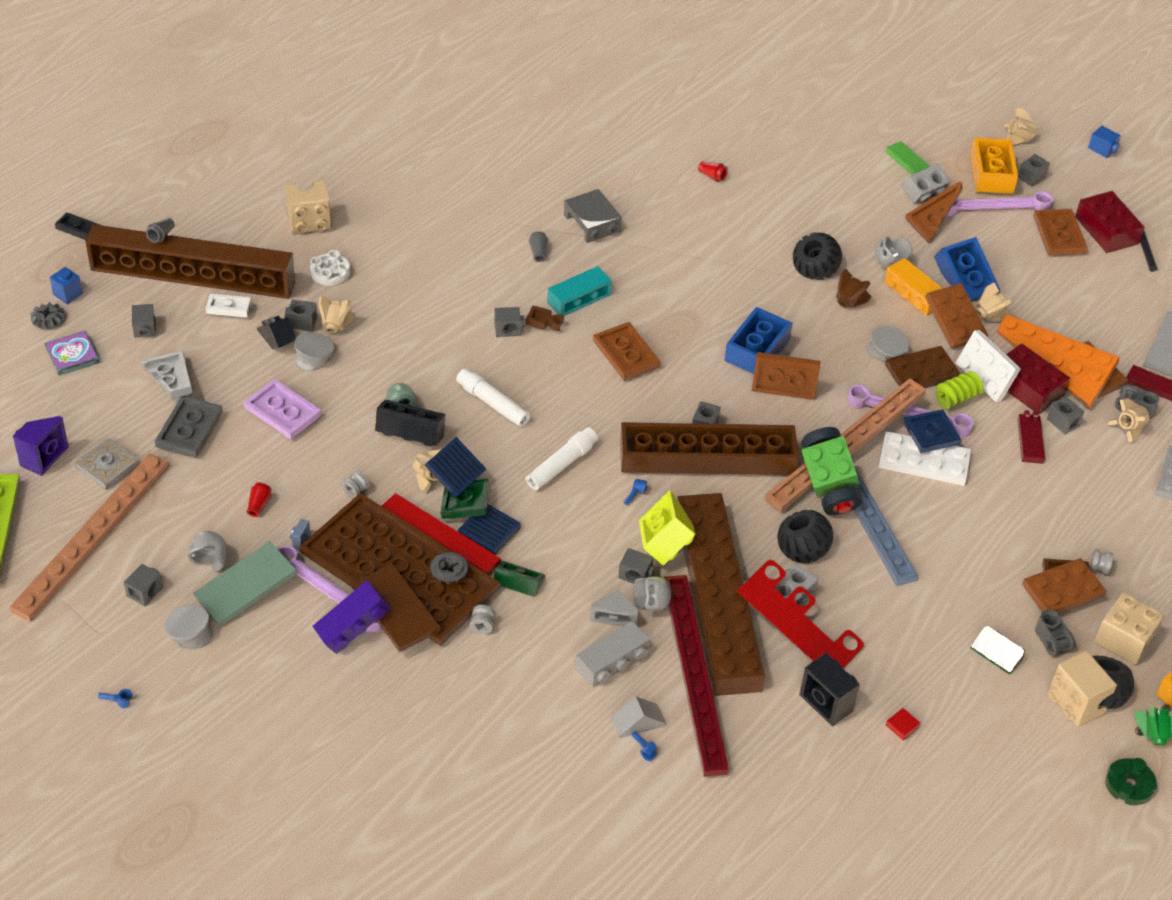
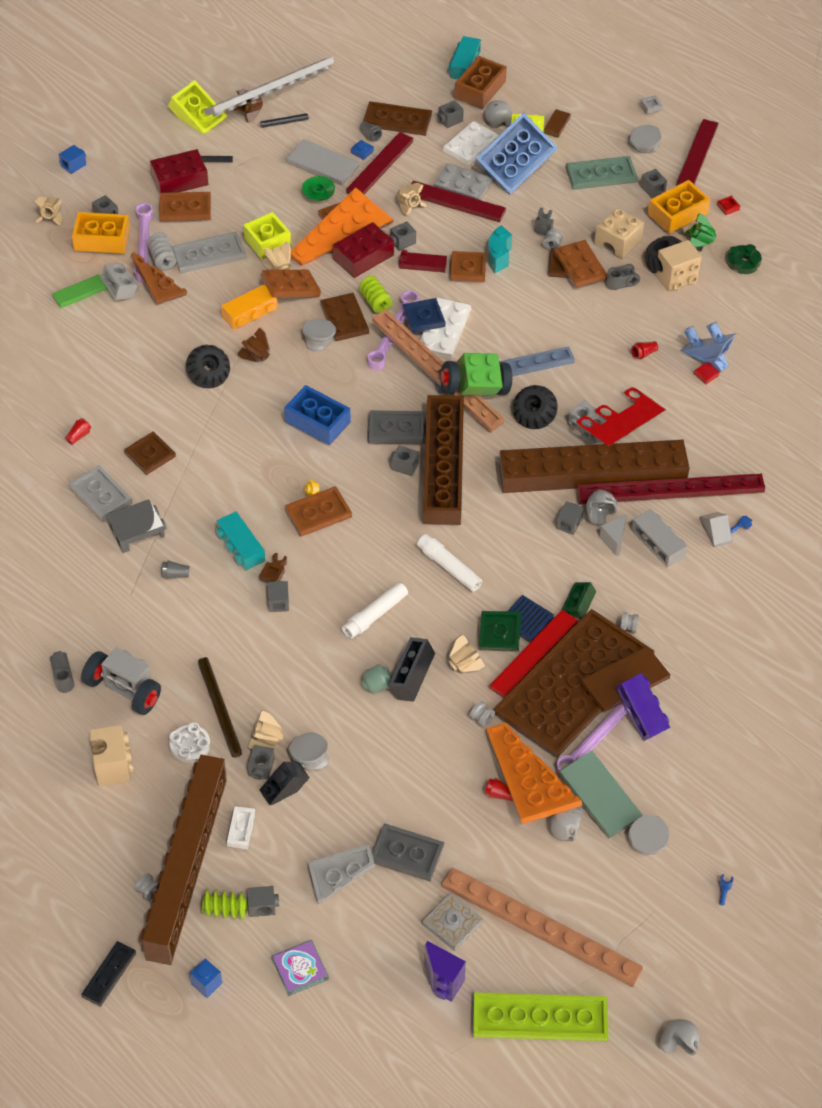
camera: 85 degrees left, 5 degrees up
(53, 320) = (250, 1003): dark grey gear -> none
(142, 290) = (225, 904): none -> lime piece
(143, 584) = (604, 874): dark grey brick -> none
(159, 230) = (165, 869): dark grey cone -> none
(250, 516) = (529, 780): none -> orange wing
(282, 409) = (385, 775): lavender plate -> none
(300, 533) = (544, 752): sand blue plate -> none
(376, 286) = (220, 707): none -> dark brown axle
(397, 213) = (124, 676): none -> brick
(406, 177) = (62, 672): none -> dark grey piece
(451, 560) = (585, 634): dark grey gear -> none
(455, 467) = (476, 629): dark blue tile -> none
(634, 190) = (100, 492): none -> light grey plate
(638, 486) = (478, 514): blue hand -> none
(657, 344) = (311, 487): none -> yellow plate
(666, 529) = (536, 490): neon yellow slope -> none
(694, 224) = (149, 453): none -> reddish brown tile
(756, 405) = (396, 427): none -> dark grey plate
(786, 375) = (363, 398): dark orange plate -> none
(829, 689) = (690, 404): black brick -> none
(891, 251) = (209, 313): light grey helmet -> none
(928, 653) = (643, 349): none -> red cone
(935, 714) = (709, 349): none -> medium blue connector
(967, 265) = (230, 270): blue slope -> none
(981, 213) = (161, 251): none -> light grey piece
(990, 364) = (351, 269): white plate -> none
(998, 649) = (636, 310): slope -> none
(1001, 256) = (208, 252): none -> light grey tile
(1028, 293) = (266, 233): none -> neon yellow brick
(1032, 478) = (468, 266): none -> dark orange plate
(1067, 504) = (499, 248): none -> teal brick
(1123, 338) = (318, 188): none -> green dish
(1123, 551) = (543, 222): none -> dark grey plate
(1141, 397) = (387, 192): dark grey piece -> none
(1147, 470) = (461, 202): none -> dark red tile

